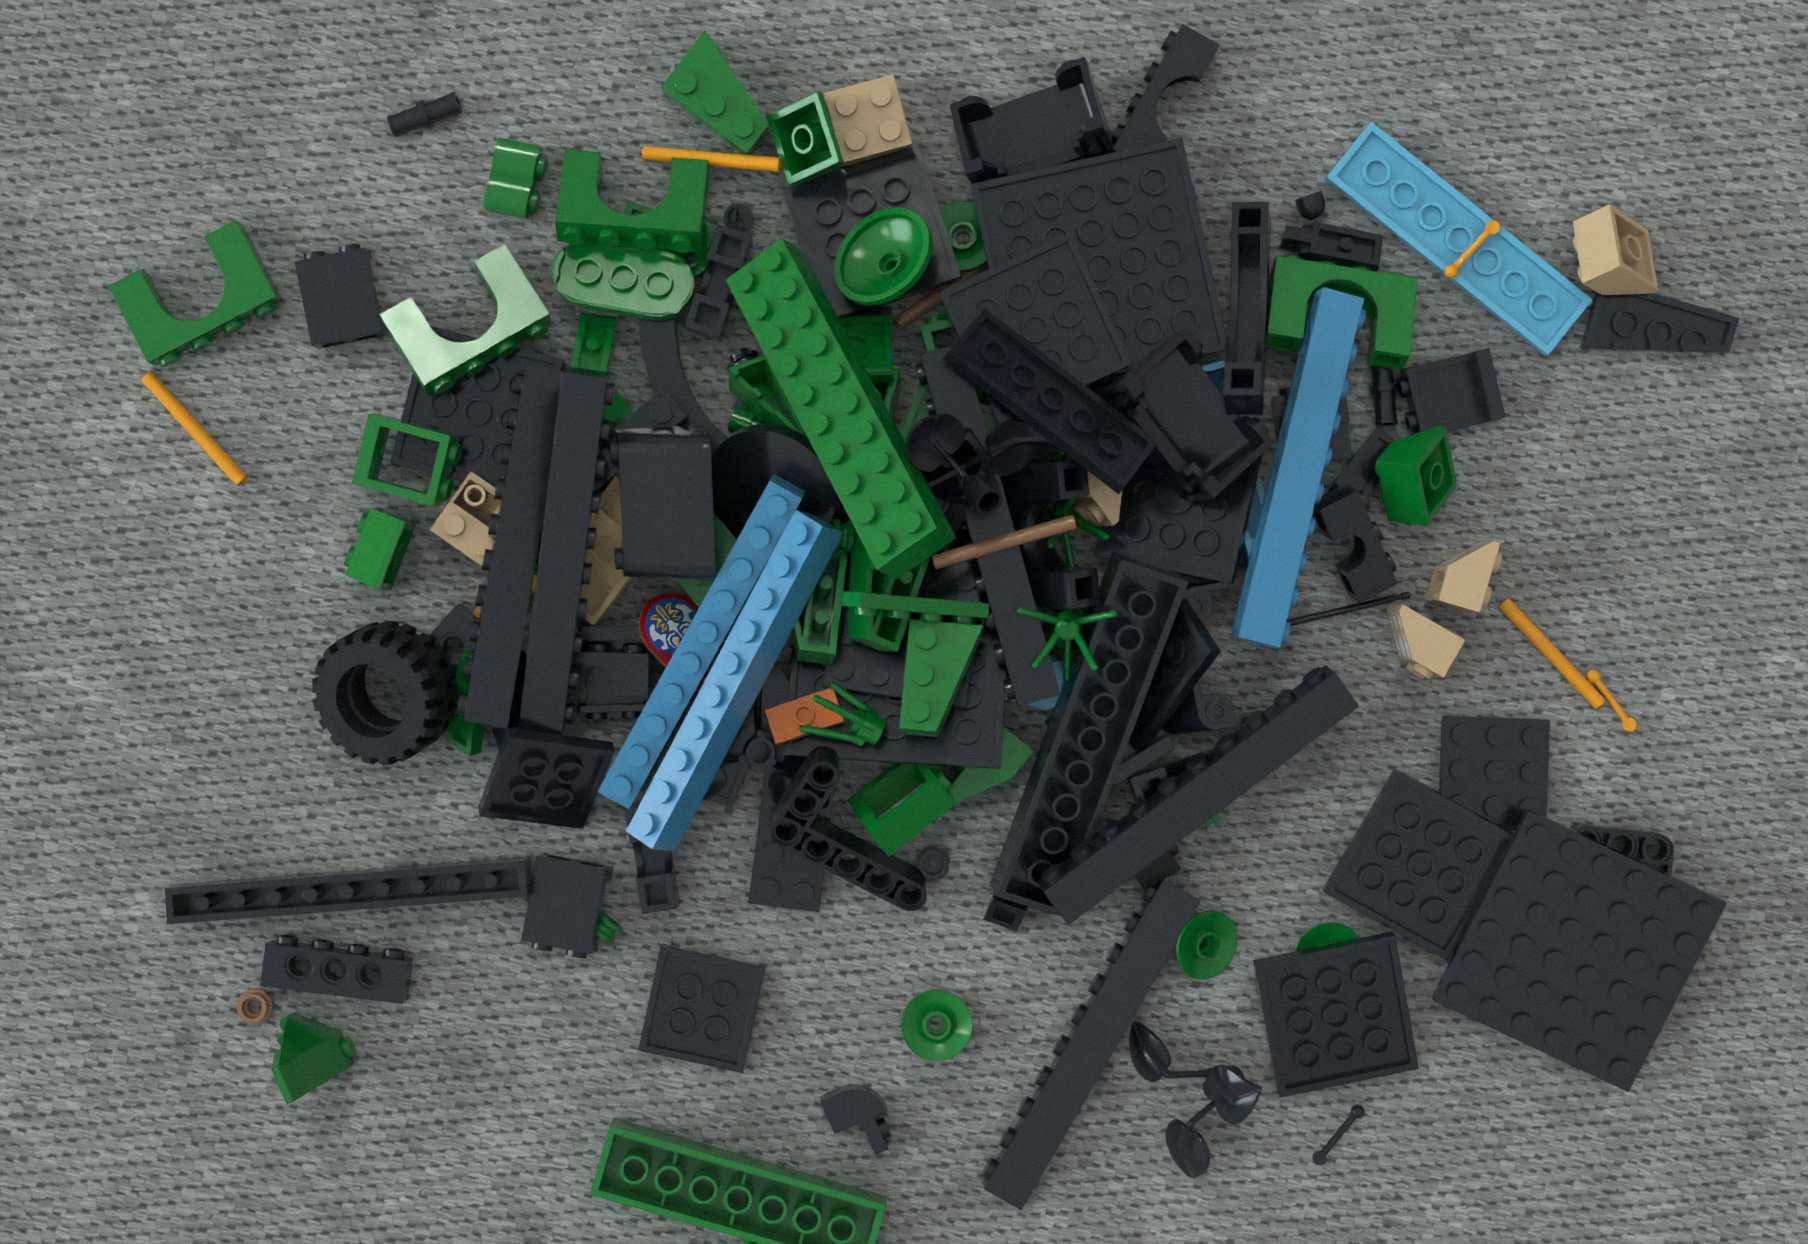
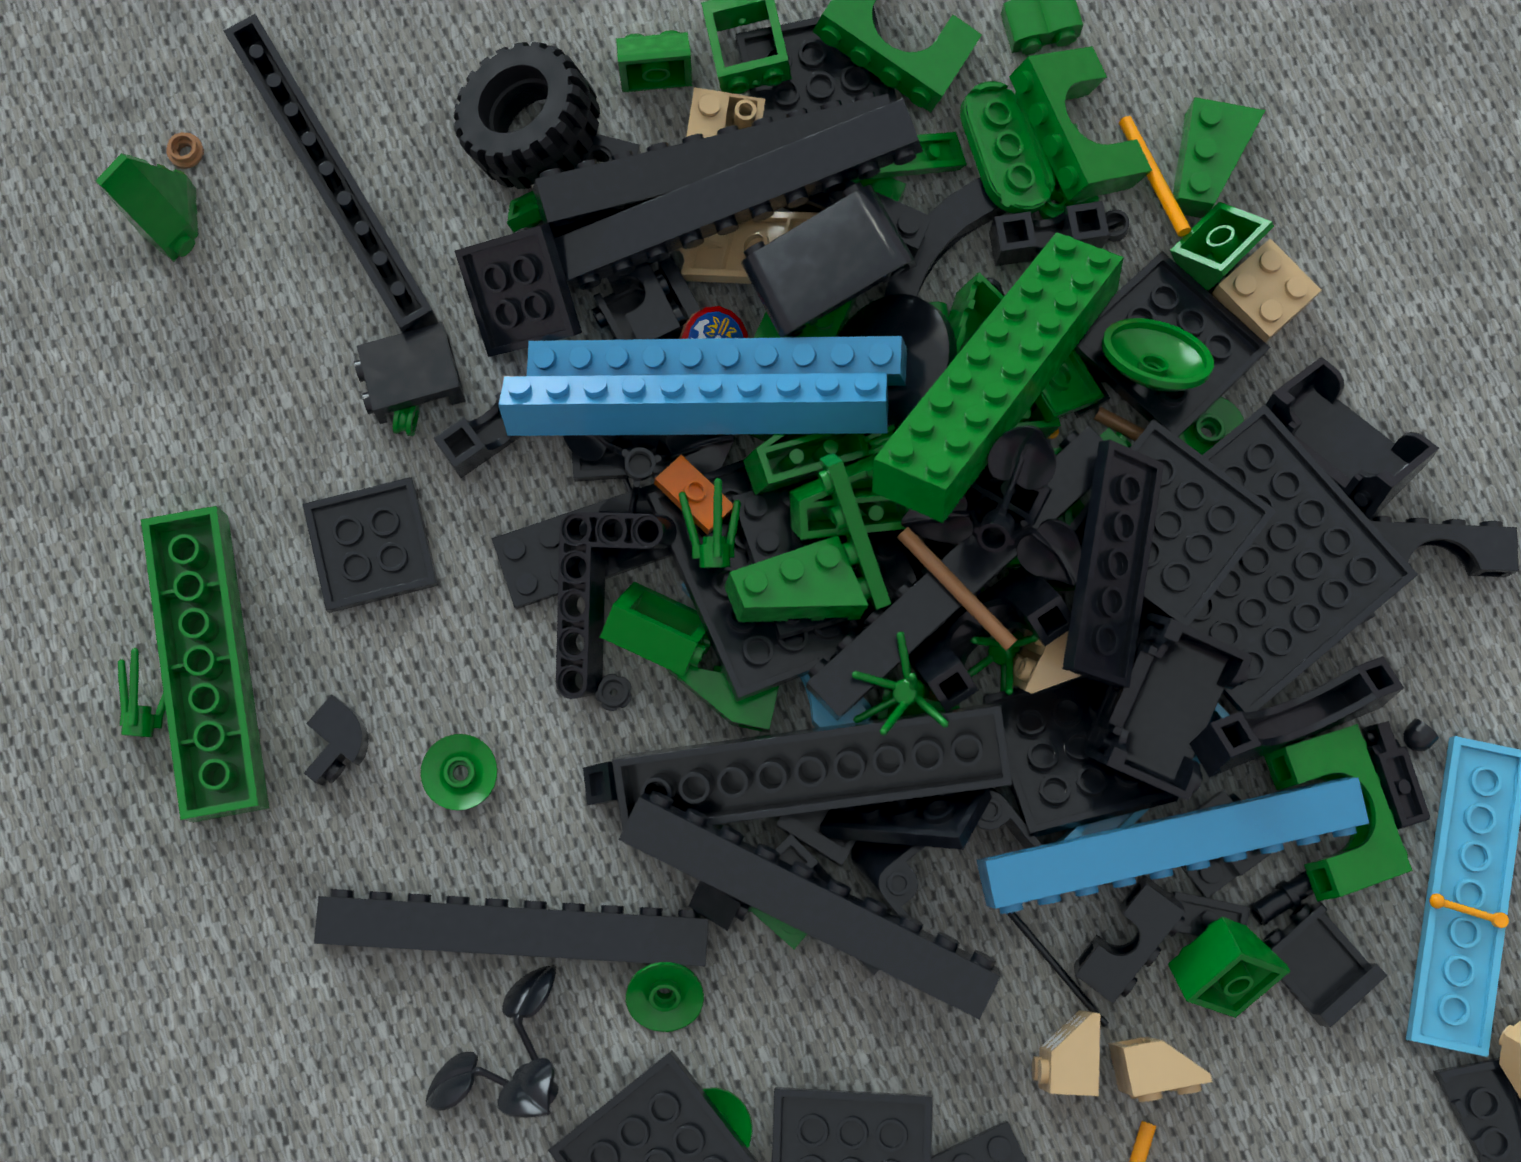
camera: 55 degrees right, 10 degrees down
(281, 972) = (228, 155): black brick -> none

